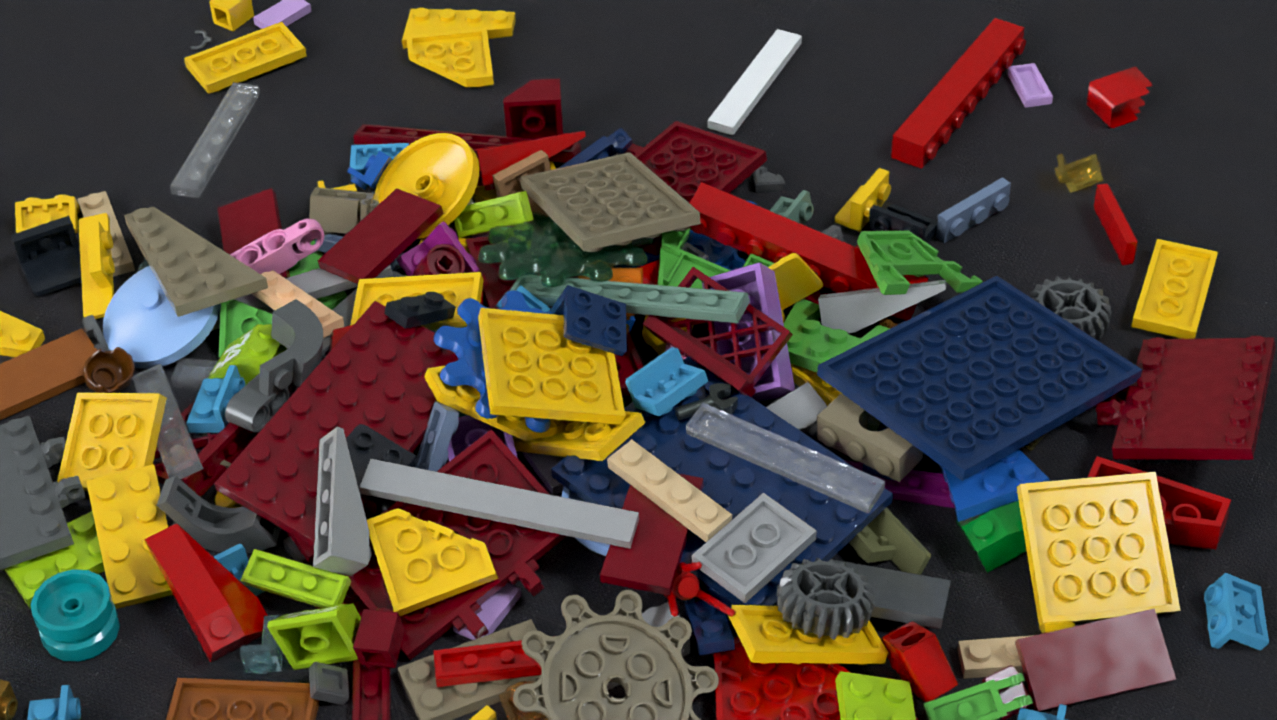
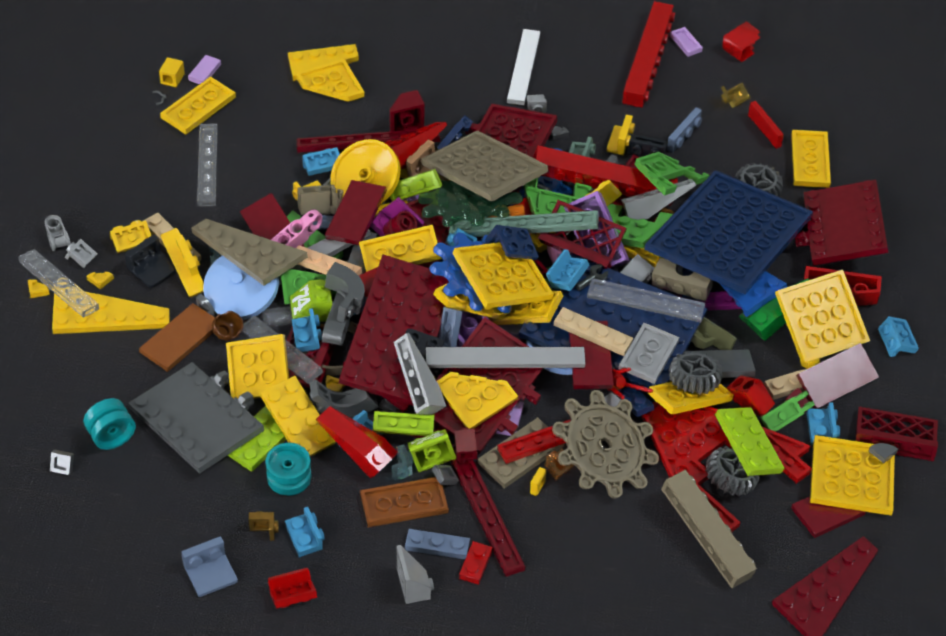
camera: 20 degrees left, 5 degrees up
(375, 167) = (327, 169): blue bracket -> none
(420, 310) = (411, 254): black plate -> none
(752, 133) = (536, 103): none -> light grey bracket

